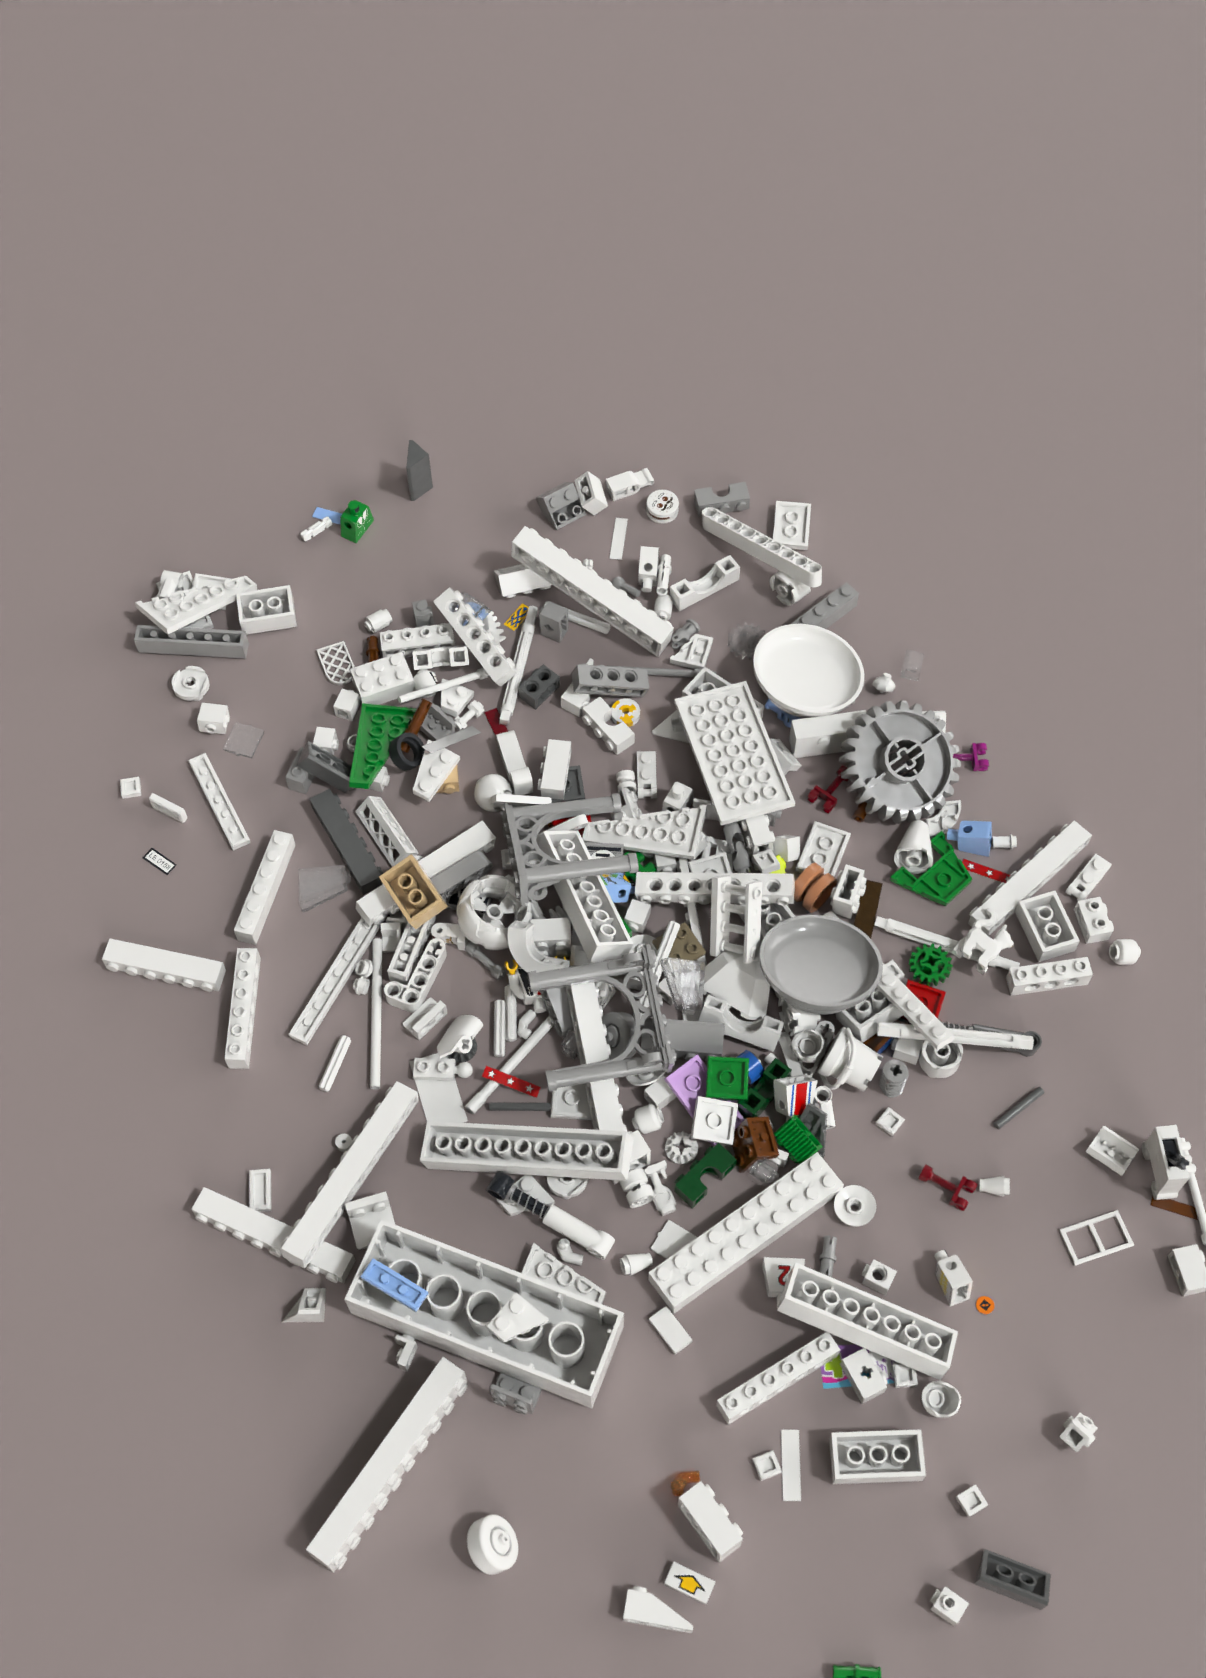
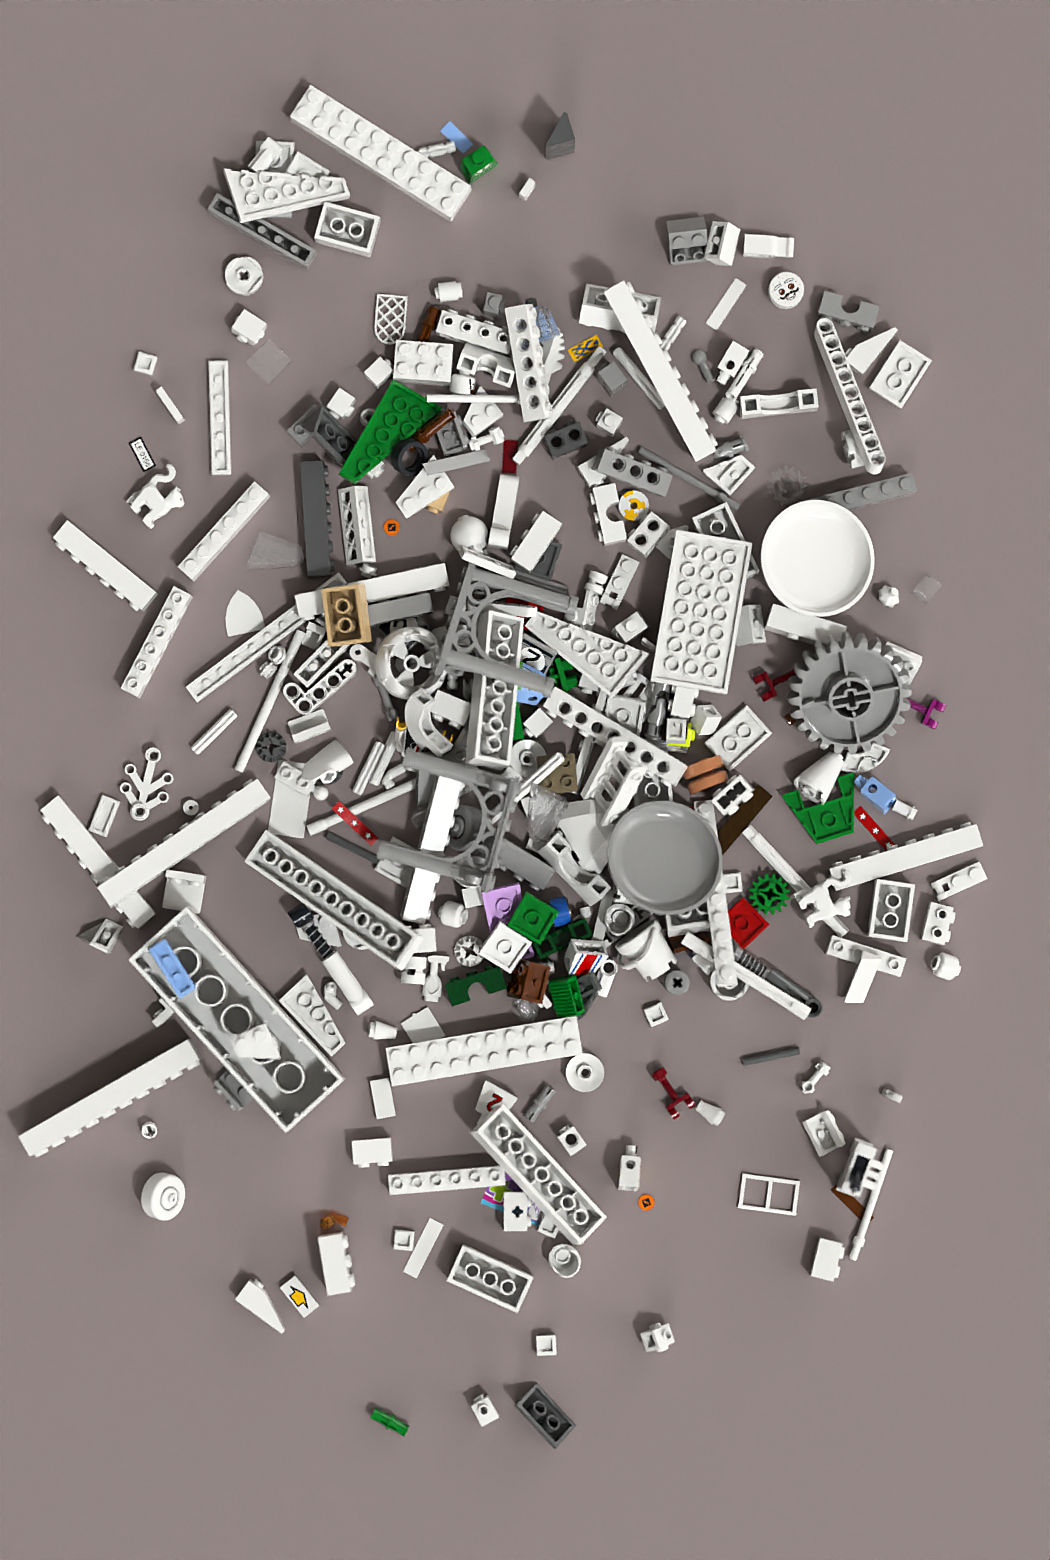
camera: 25 degrees right, 25 degrees up
(188, 890) = (154, 500): none -> white animal
(268, 547) = (380, 153): none -> white brick
(290, 1144) = (145, 787): none -> white plant
(315, 952) = (243, 615): none -> white sticker
(393, 1060) = (278, 752): none -> dark grey gear
(407, 523) = (527, 189): none -> white tile
(419, 821) = (391, 527): none -> orange sticker
(449, 1477) = (145, 1132): none -> white hinge
(568, 656) = (608, 422): none -> white brick
(652, 726) = (652, 537): none -> white brick
(687, 1387) = (372, 1151): none -> white brick
(756, 515) = (866, 352): none -> white slope
(1059, 992) = (862, 978): none -> white slope
(1071, 1115) = (808, 1086): none -> white bar
(1155, 1088) = (891, 1095): none -> white tile

